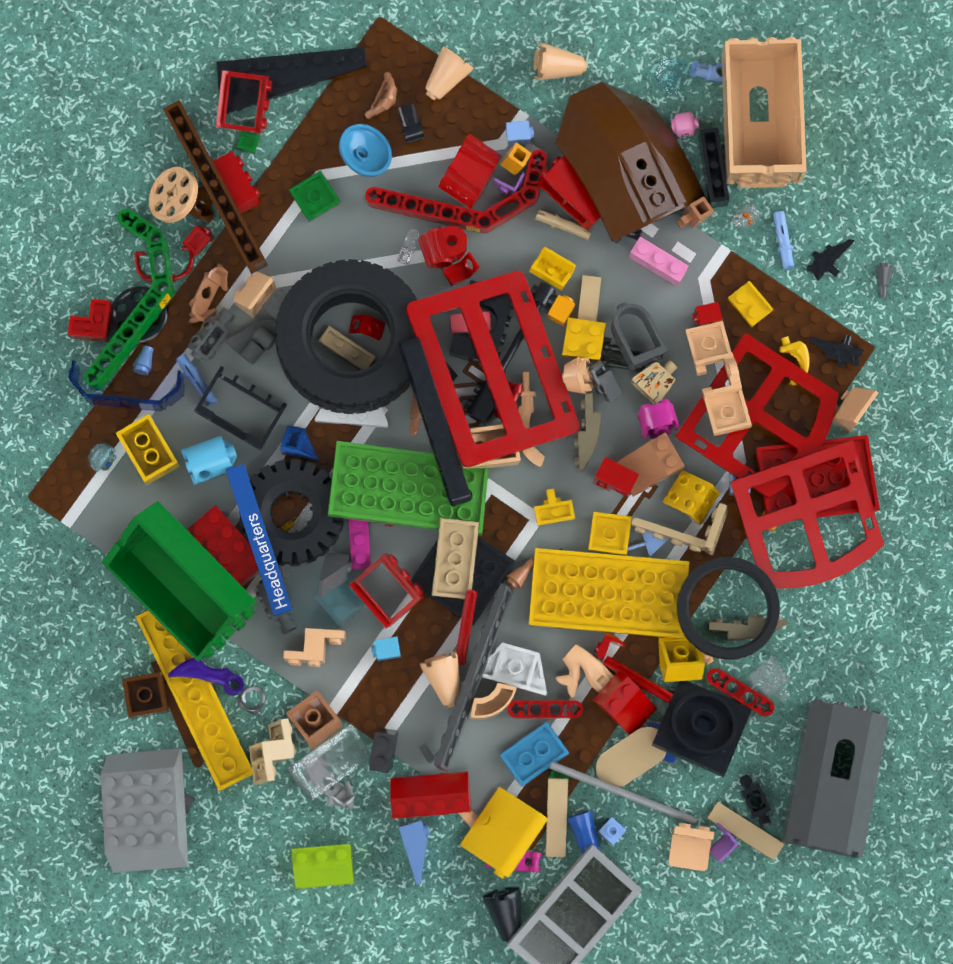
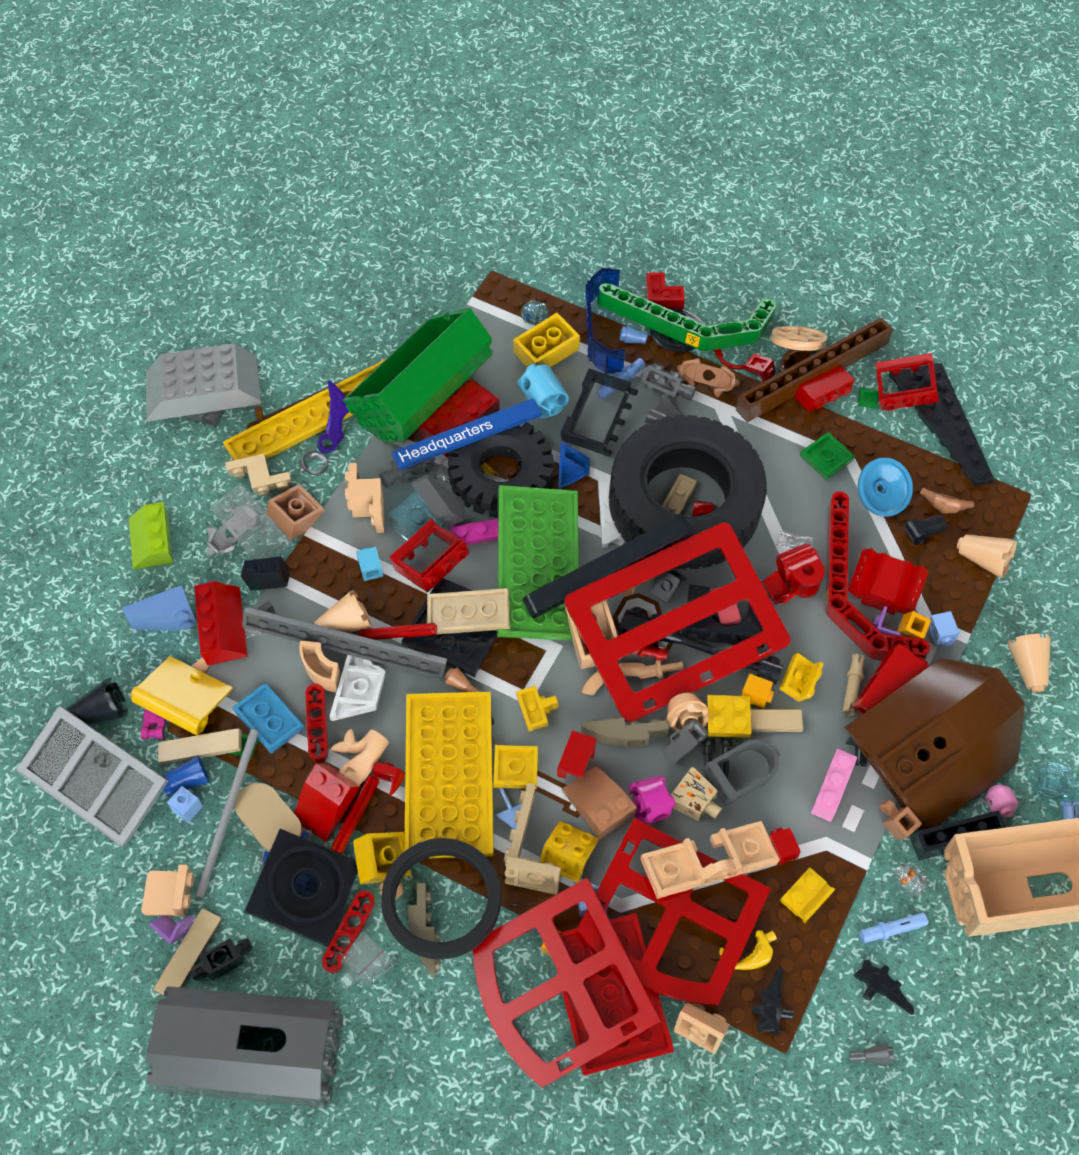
camera: 85 degrees right, 20 degrees down
(145, 695) = (310, 371): reddish brown brick -> none
(255, 293) = (712, 408): light nougat slope -> none

